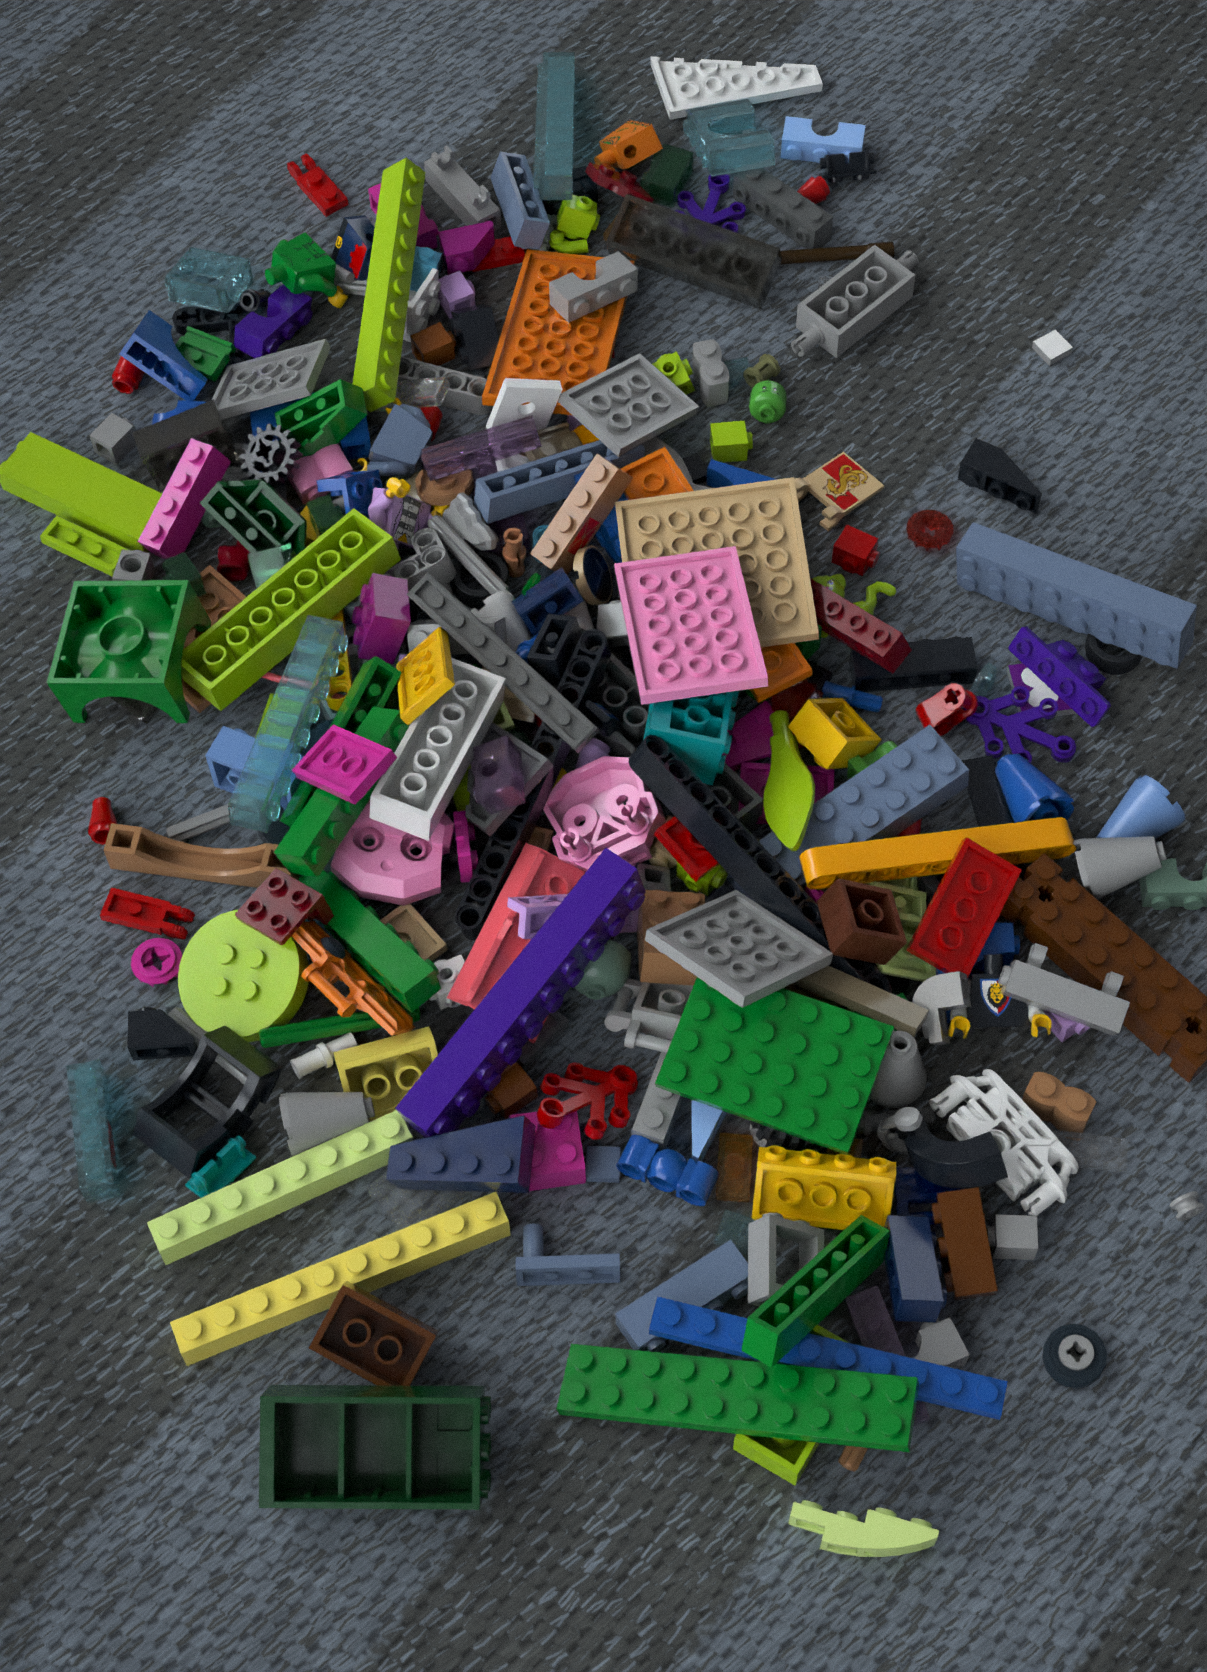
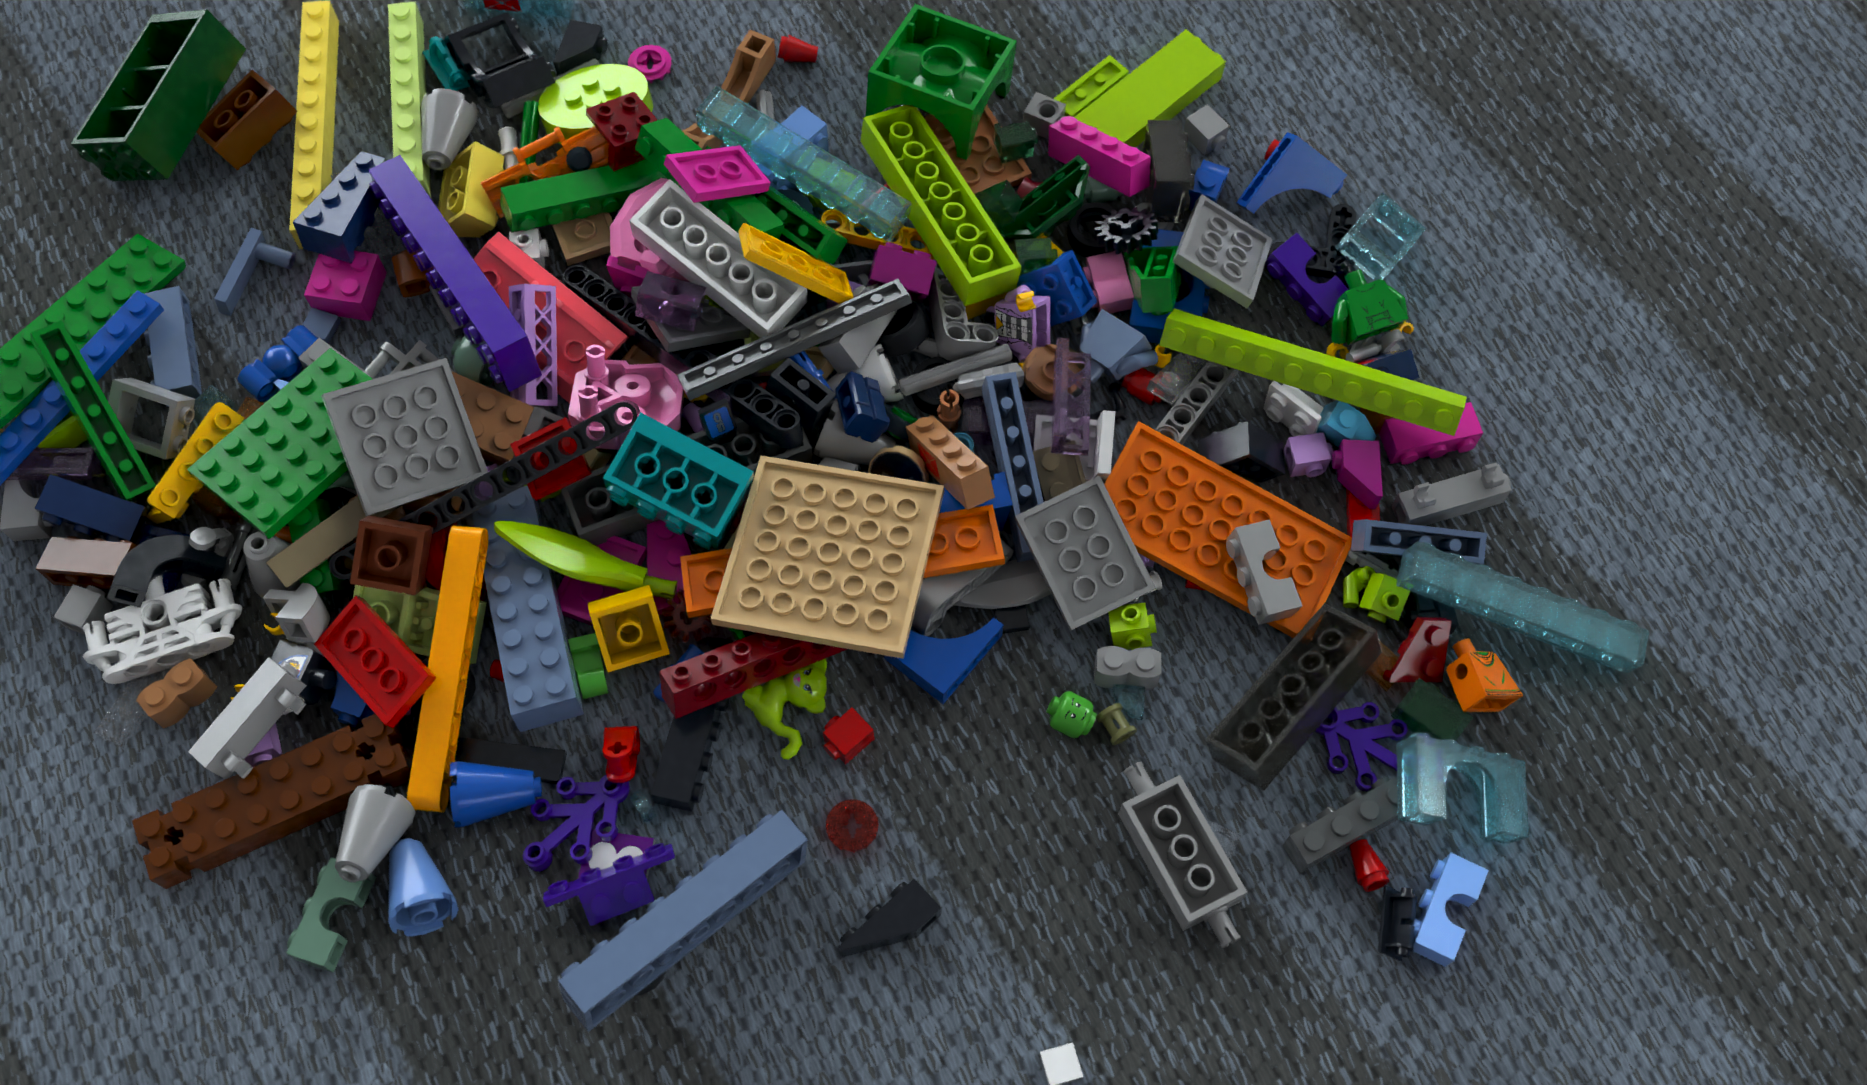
camera: 105 degrees right, 5 degrees up
(145, 913) = (696, 63): red hinge -> none
(205, 352) = (1290, 215): green plate -> none
(318, 186) = (1500, 370): red hinge -> none
(433, 345) = (1242, 408): dark orange brick -> none
(619, 1080) = (367, 321): red plant -> none
(690, 625) = (749, 488): bright pink plate -> none
(723, 81) = (1571, 824): white wing -> none
(730, 441) = (1030, 659): lime brick -> none
(832, 253) = (1263, 906): dark brown piece -> none
(839, 486) = (941, 753): flag -> none
(1187, 1206) = (31, 769): light grey bush -> none

